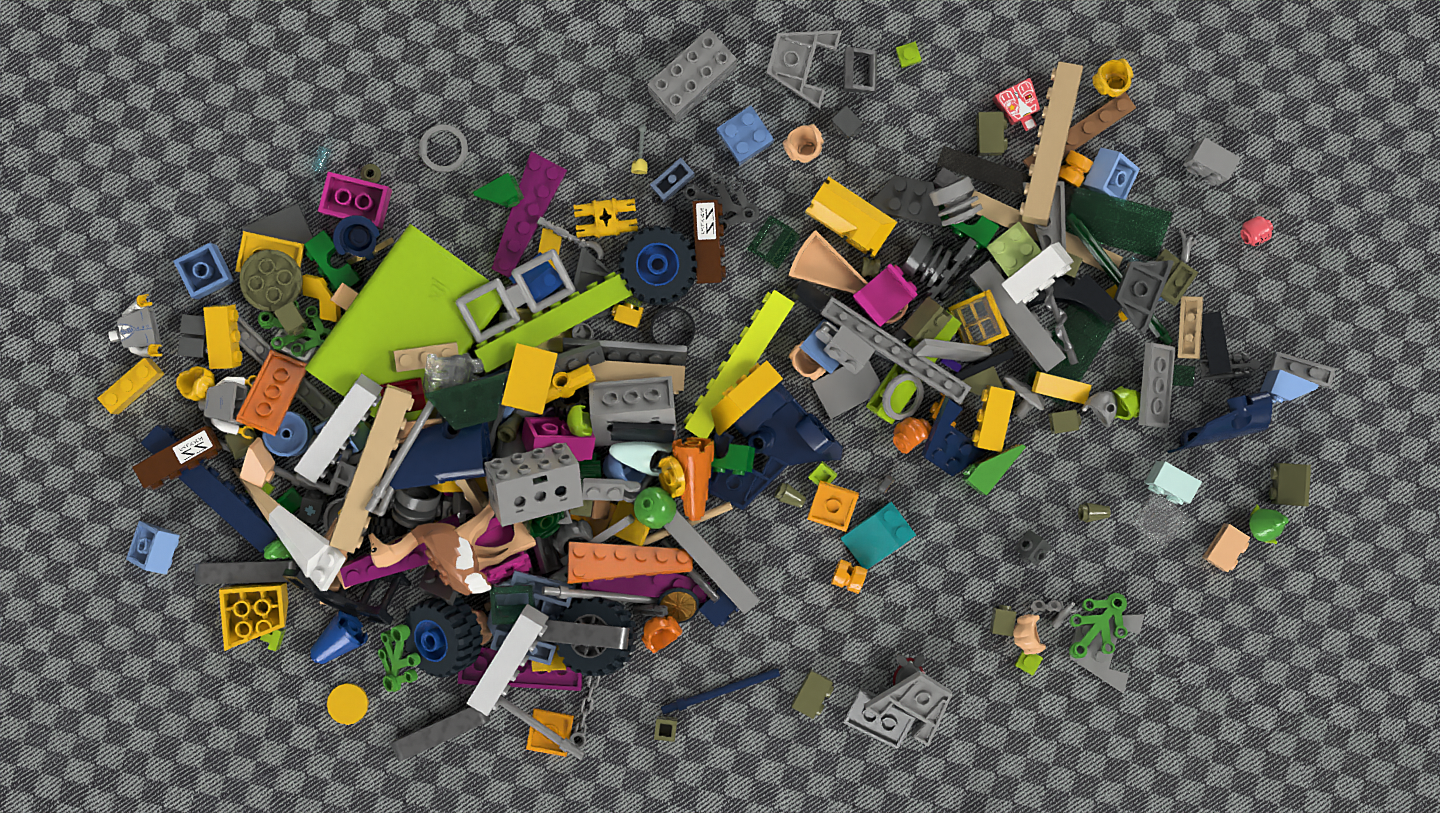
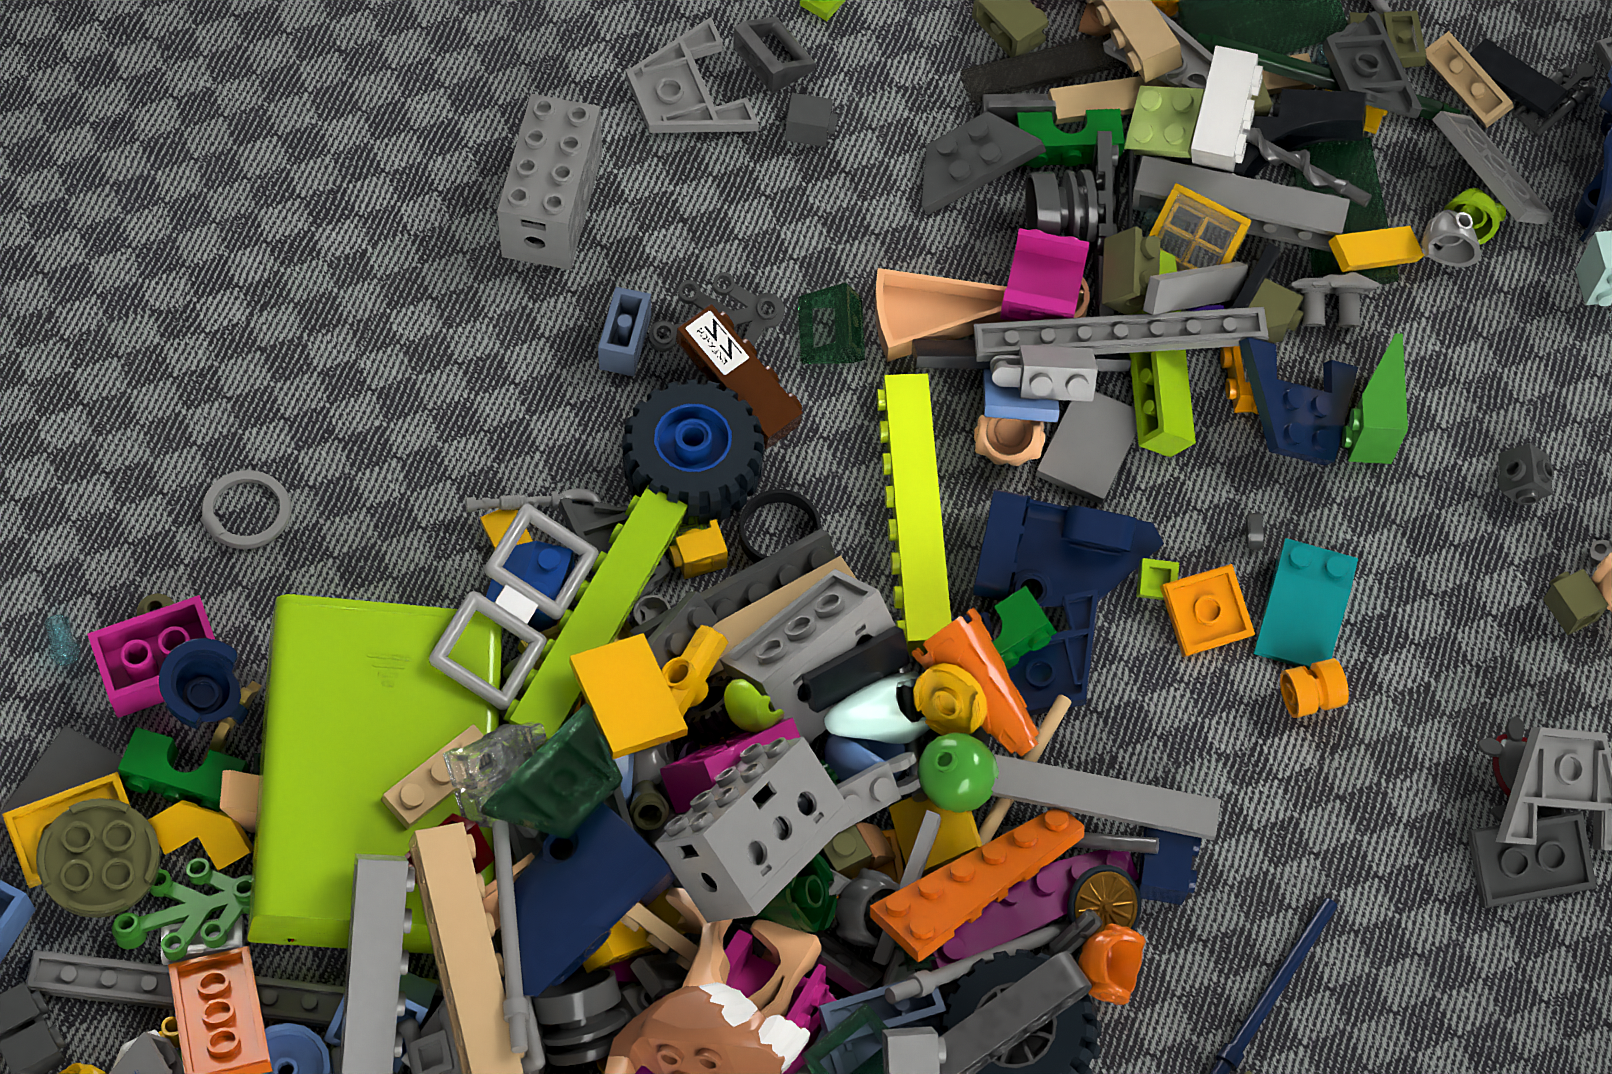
camera: 40 degrees left, 25 degrees down
(222, 336) = (73, 995): yellow brick -> none
(291, 319) = (172, 890): olive brick -> none
(502, 192) = (380, 505): green slope -> none
(538, 187) = (435, 492): magenta wing -> none
(597, 209) = (564, 459): yellow pin -> none
(639, 165) = (561, 348): hinge -> none
(744, 396) = (960, 532): yellow wedge -> none
(745, 135) = (682, 217): medium blue brick -> none
(789, 495) = (1133, 639): olive cone -> none
(803, 143) = (773, 175): light nougat hair -> none
(812, 694) = (1407, 895): olive brick -> none
(851, 216) = (914, 221): yellow brick -> none
(870, 267) = (992, 270): olive wheel -> none
(890, 389) = (1162, 400): light grey piece -> none
(910, 433) = (1231, 435): orange hair -> none
(956, 201) = (1040, 97): light grey wheel -> none
(993, 418) = (1326, 336): yellow brick -> none
(1064, 421) = (1416, 292): olive brick -> none
(1092, 512) = (1556, 381): olive cone -> none
(1183, 375) = (1513, 143): clear green tile -> none

